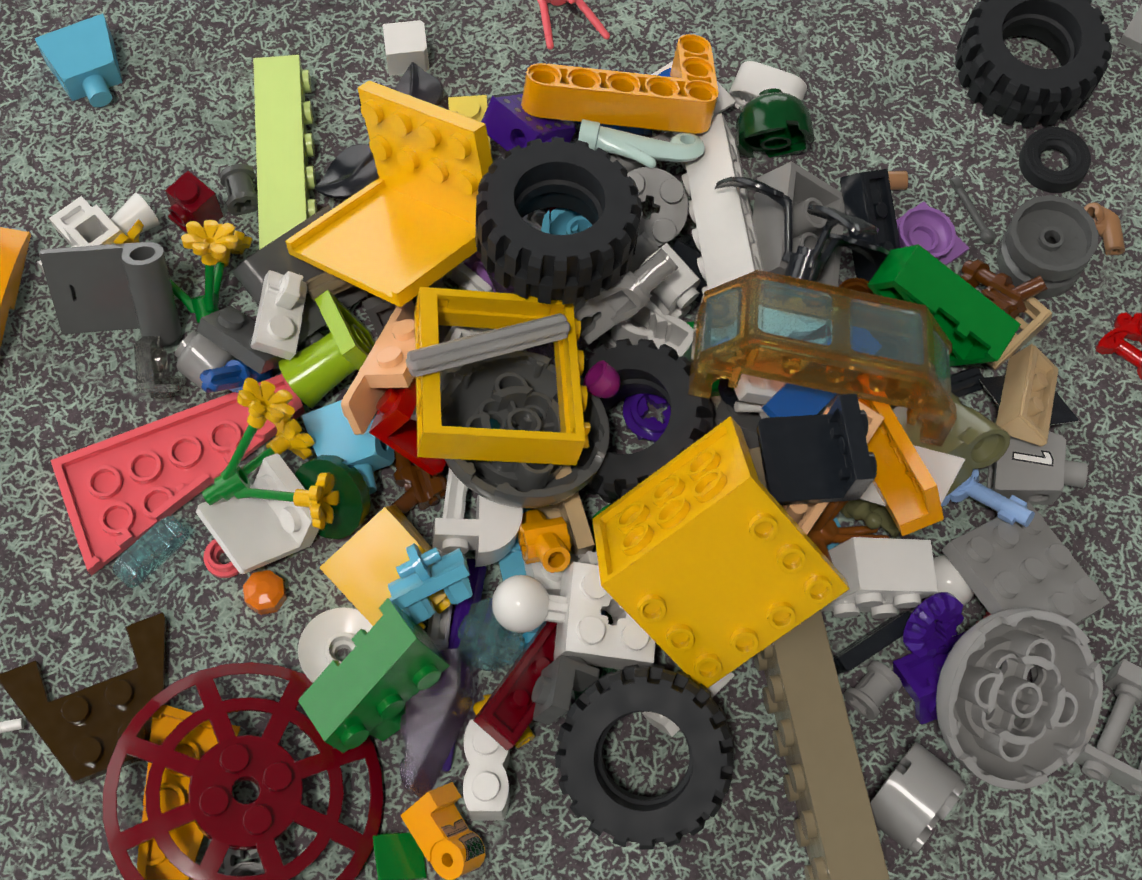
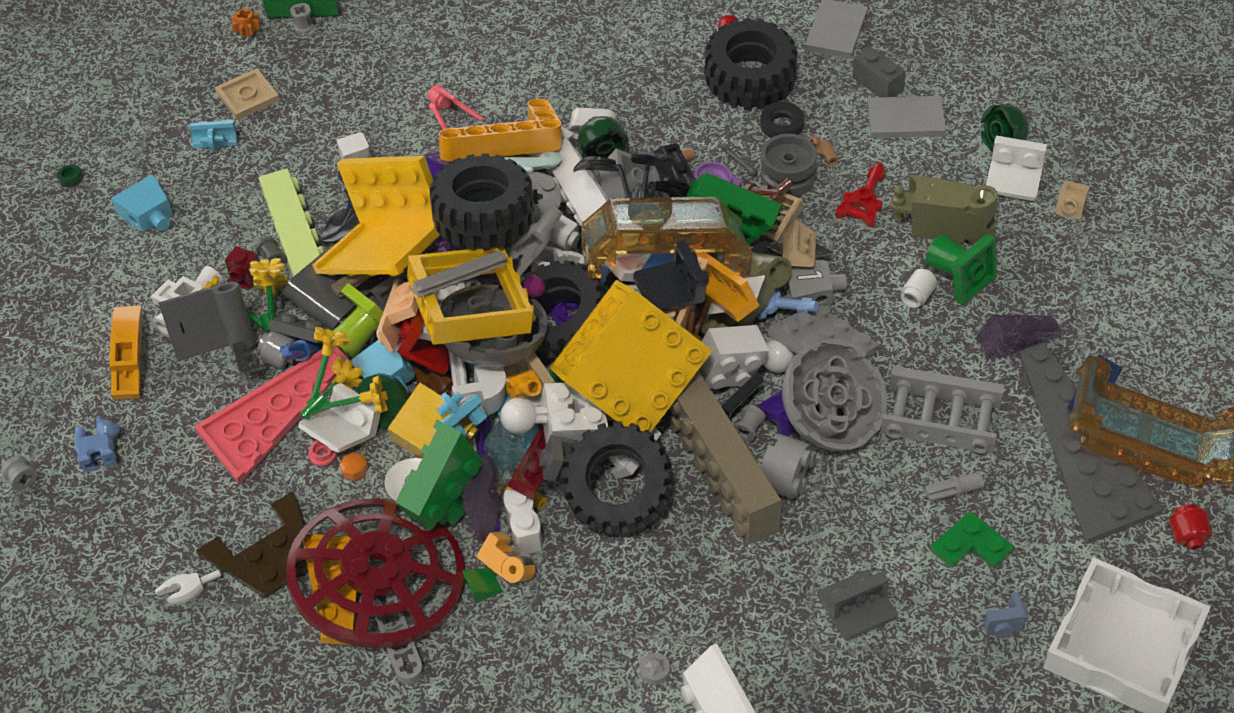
camera: 10 degrees left, 15 degrees down
(150, 551) = (274, 460): clear light blue beam -> none
(280, 314) = (320, 304): white hinge -> none
(922, 634) = (765, 373): dark purple gear -> none

